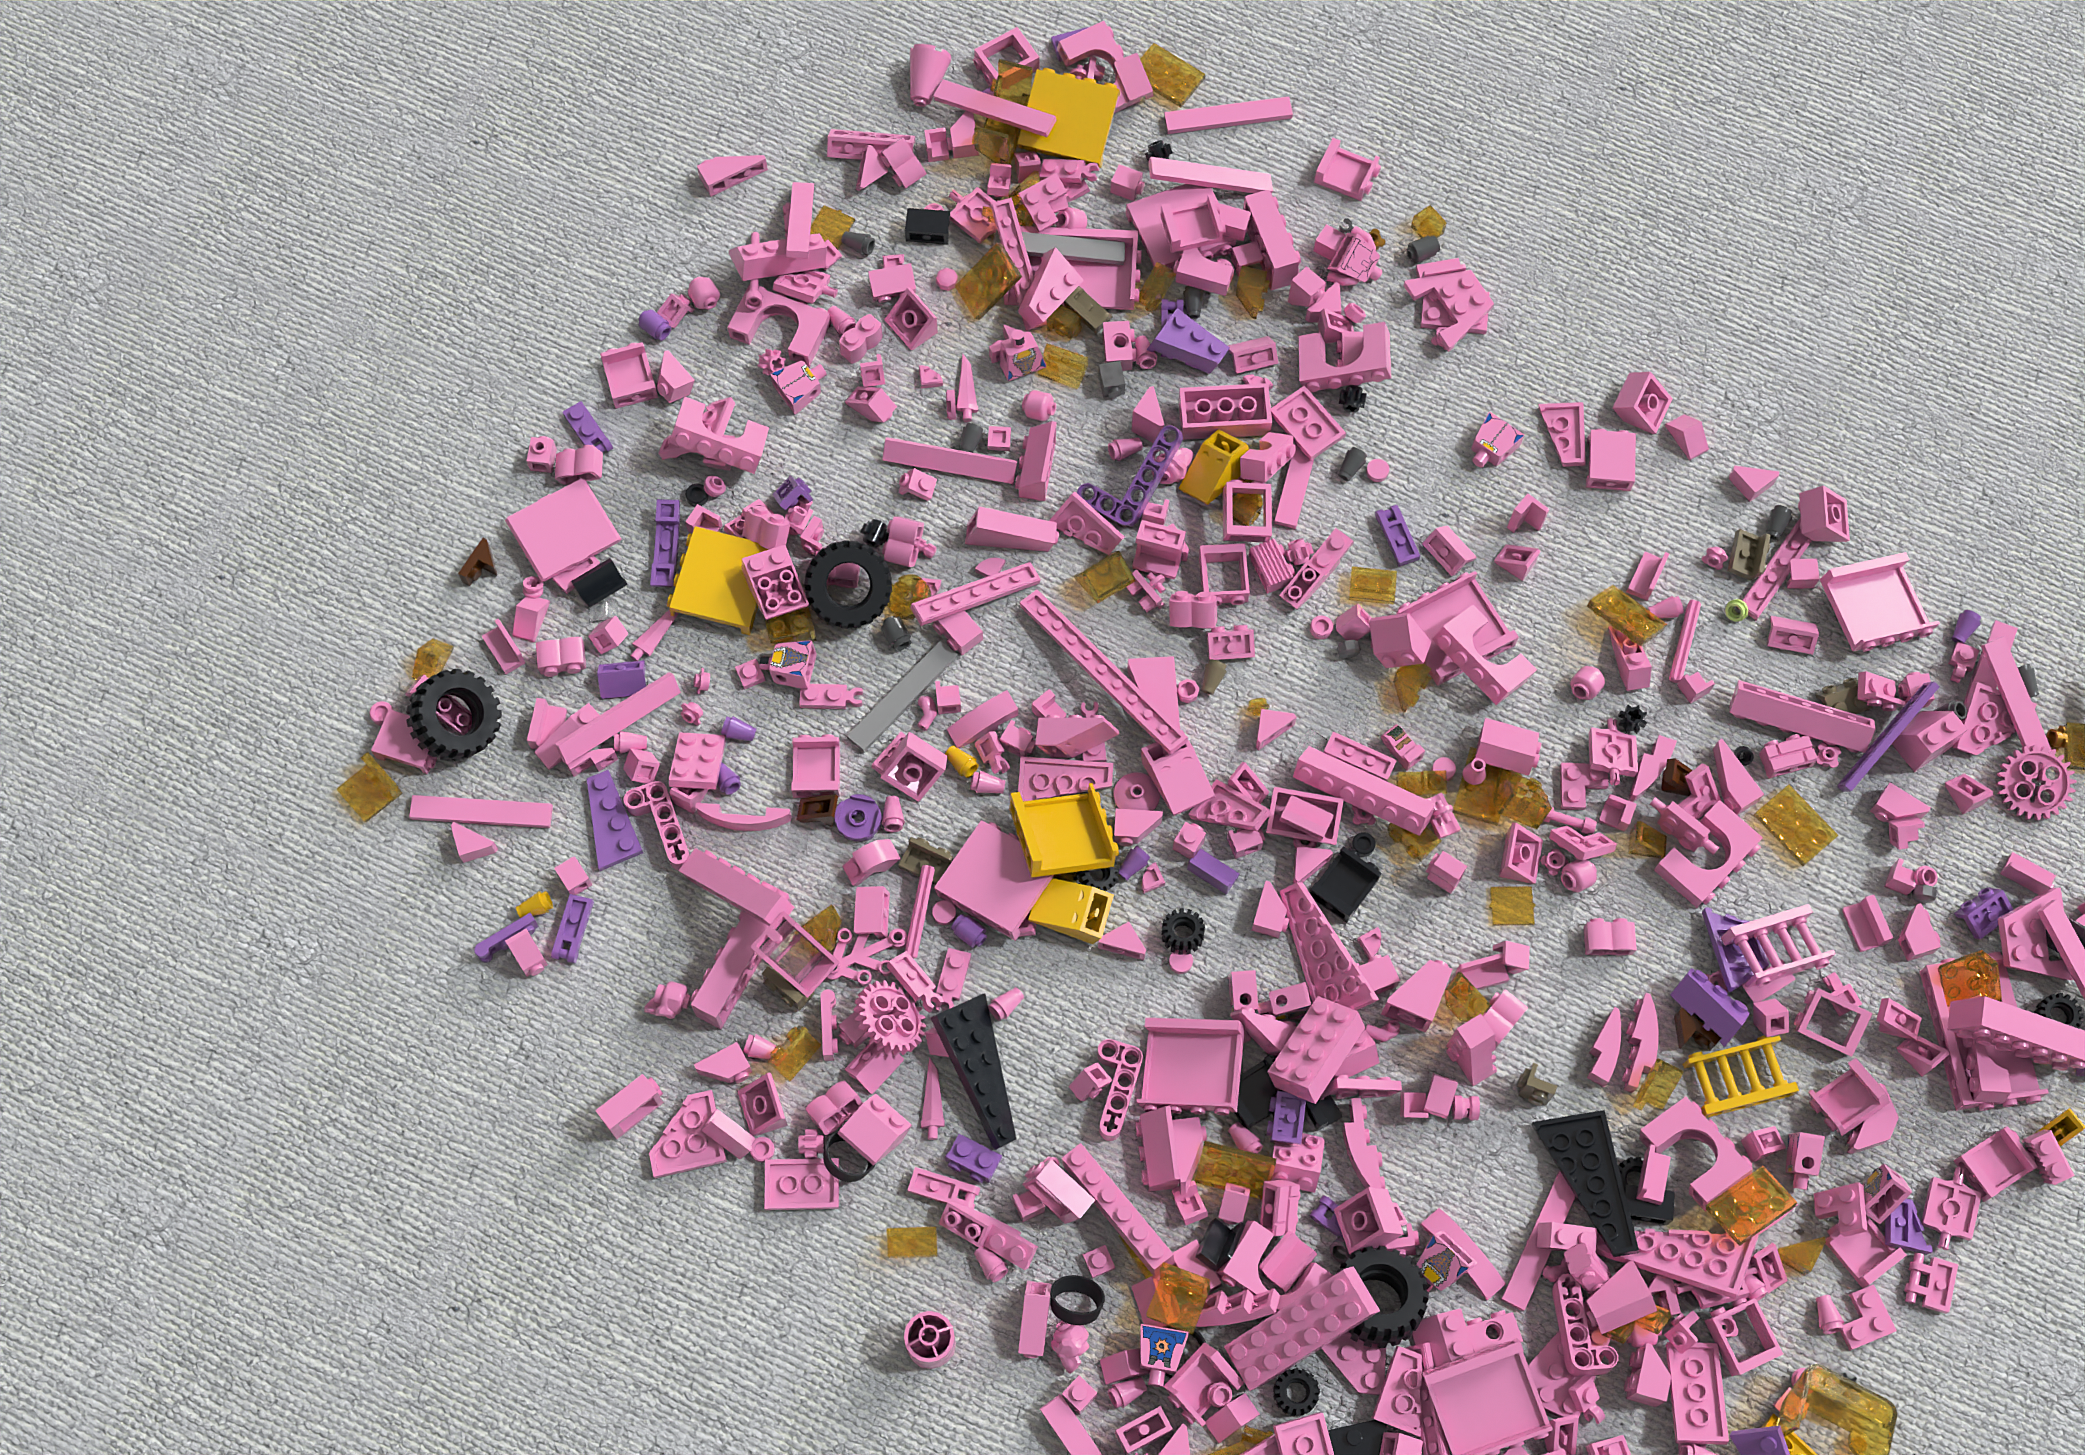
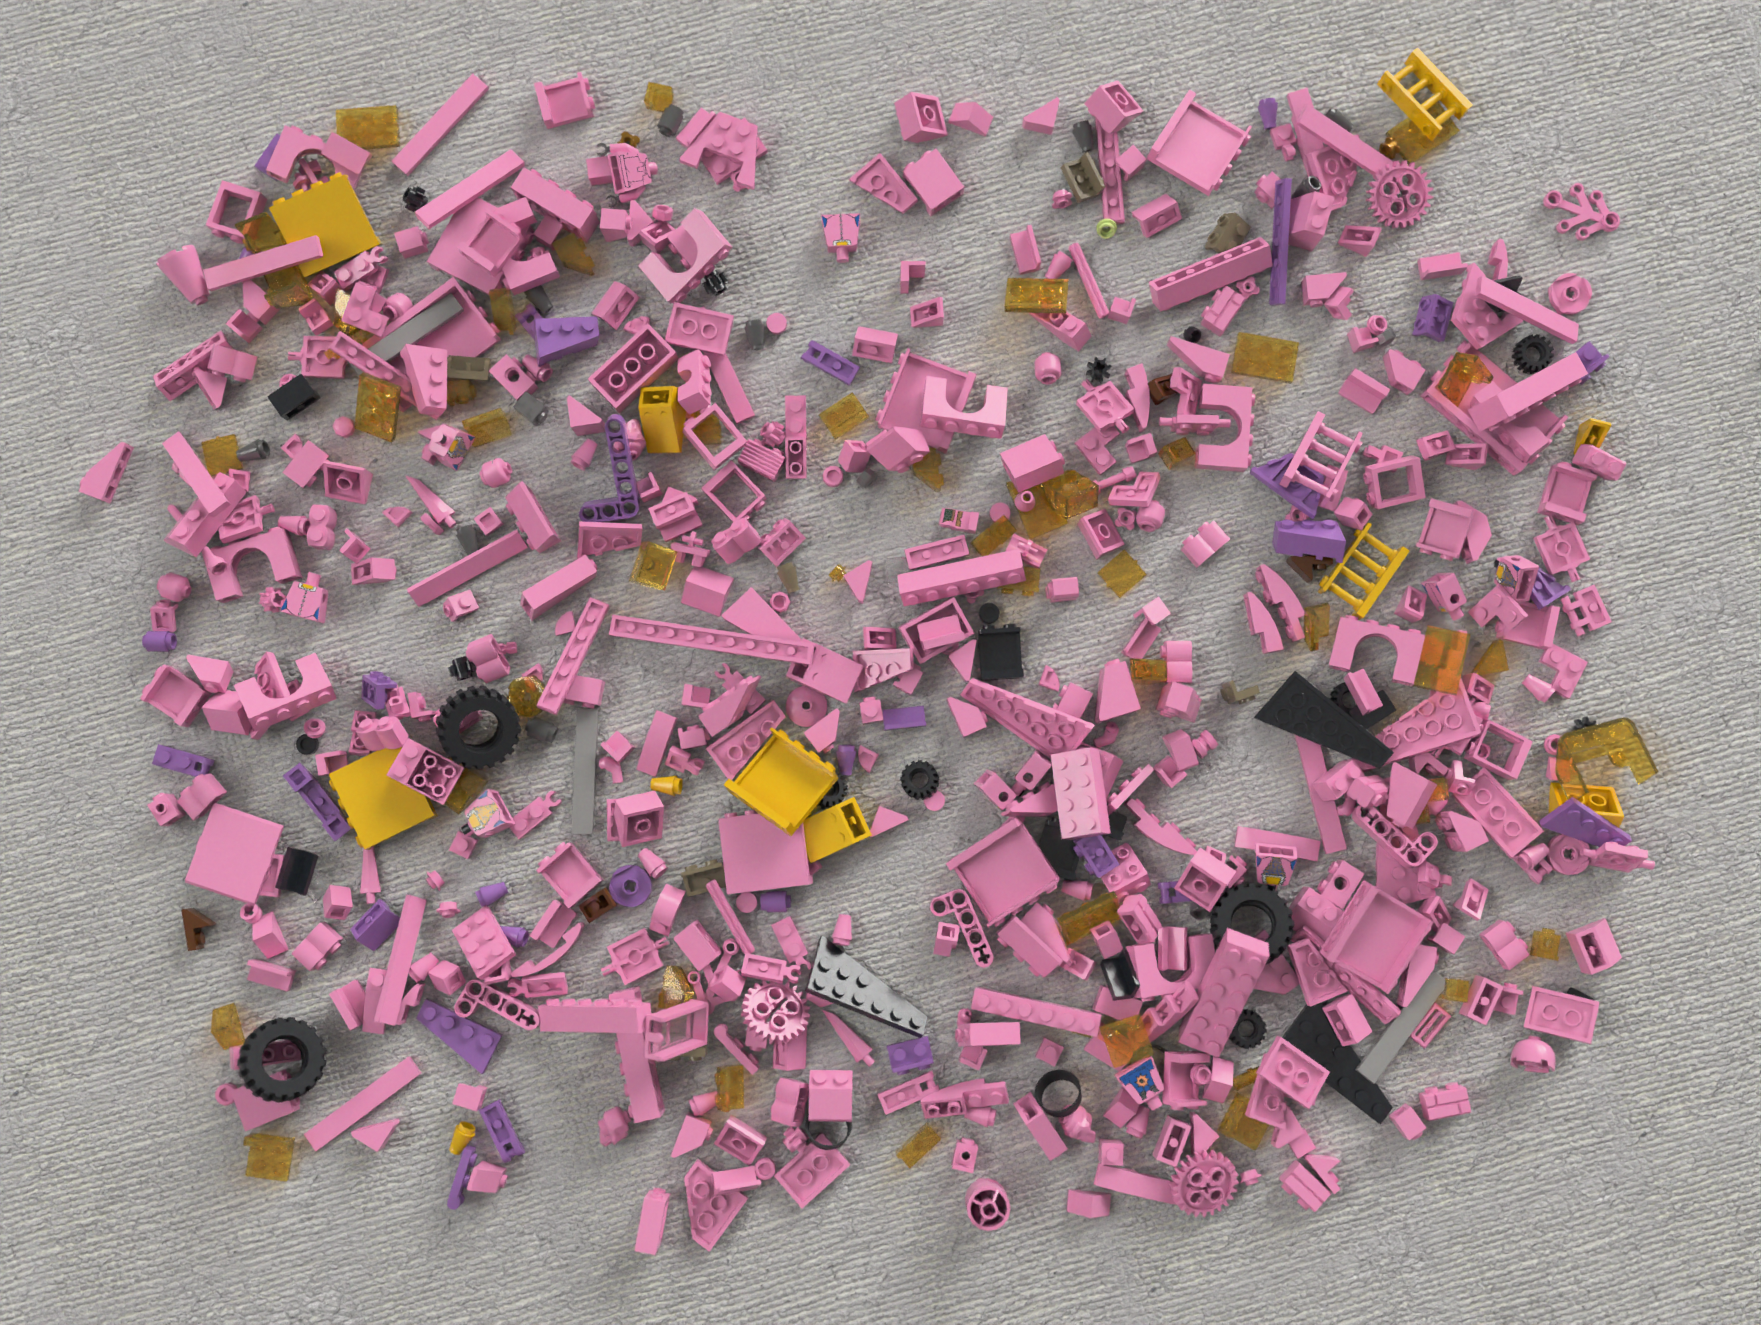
camera: 40 degrees left, 15 degrees up
(655, 420) = (227, 713): none -> bright pink slope
(711, 835) = (539, 985): none -> bright pink plate
(767, 792) = (553, 923): none -> bright pink panel
(811, 877) = (635, 956): none -> bright pink plate
(868, 961) = (727, 983): none -> bright pink panel
(942, 1294) = (960, 1163): none -> bright pink brick
(986, 783) = (698, 786): bright pink cone -> none
(1021, 1426) = (1088, 1203): none -> bright pink slope
(1132, 633) = (706, 590): none -> bright pink slope
(1878, 691) = (1248, 213): bright pink bracket -> none

